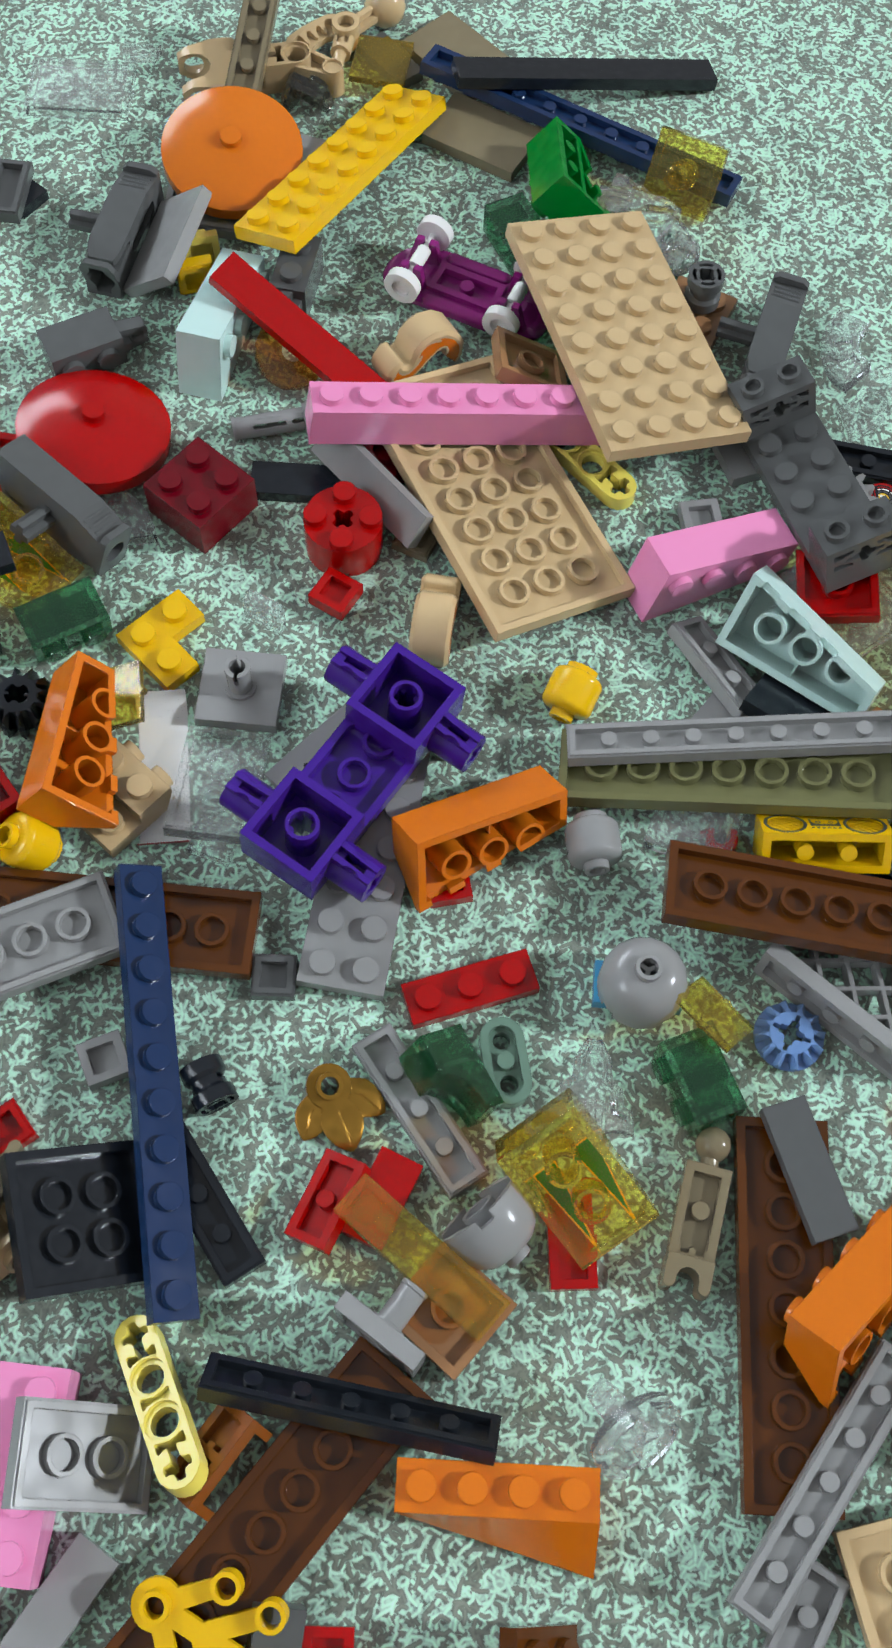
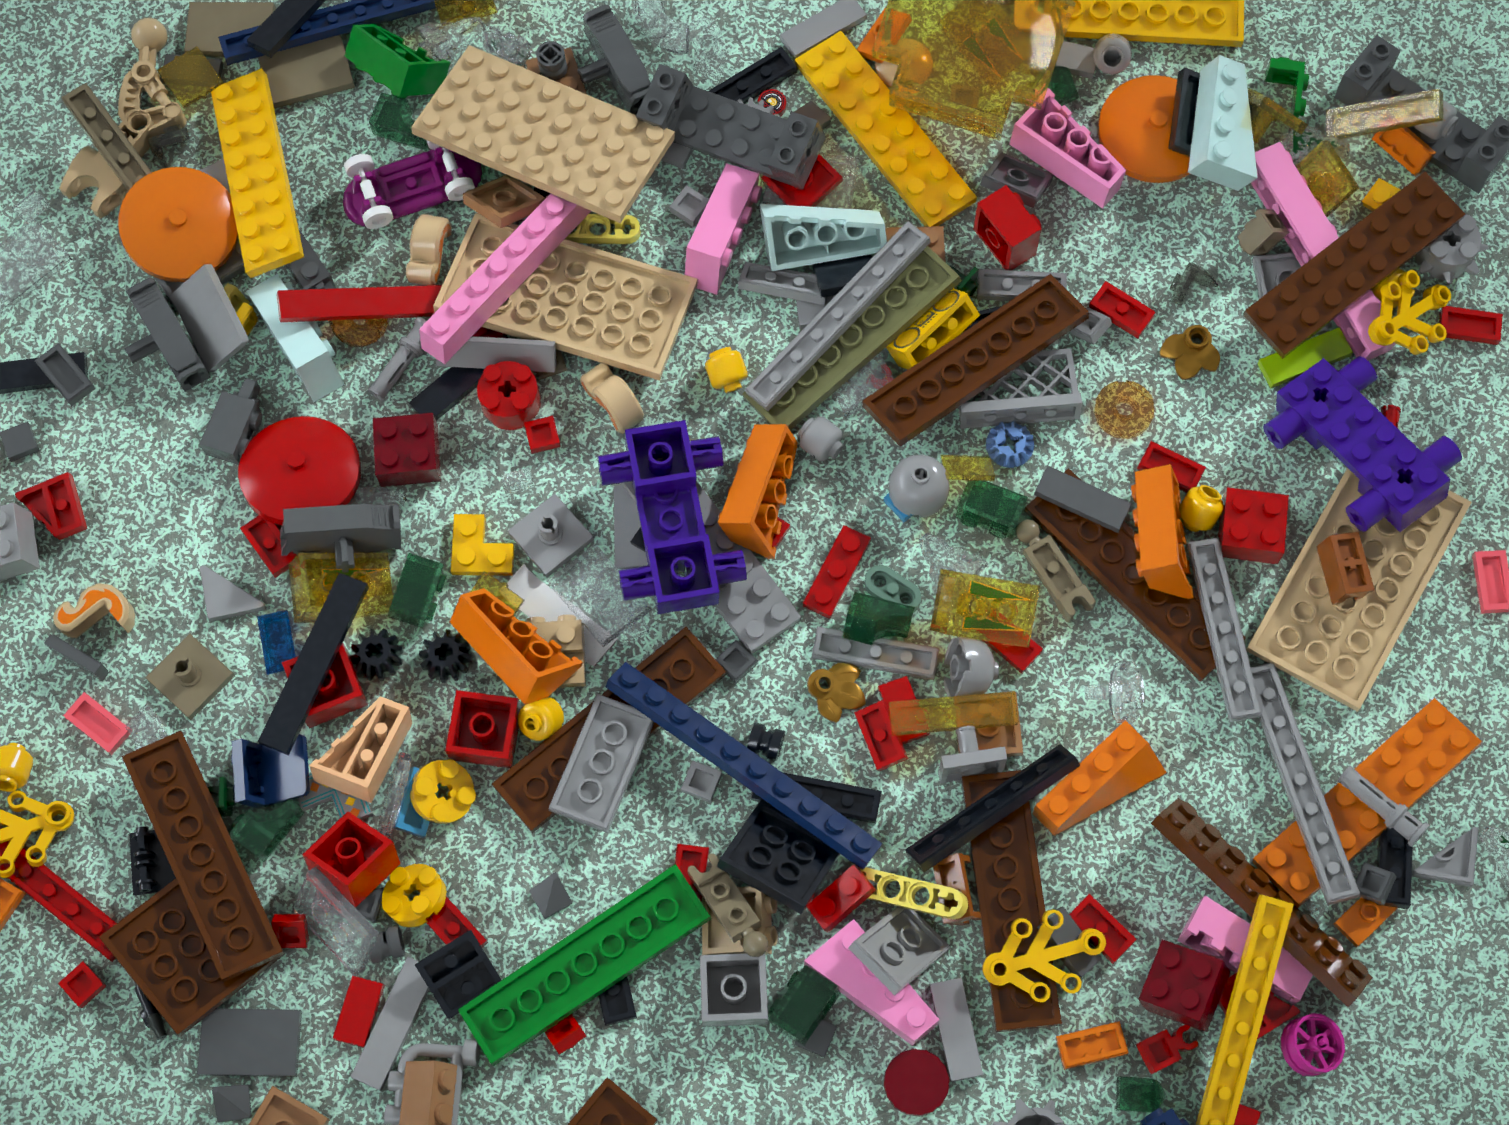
camera: 40 degrees left, 5 degrees up
(94, 1331) = (841, 898): none -> red plate

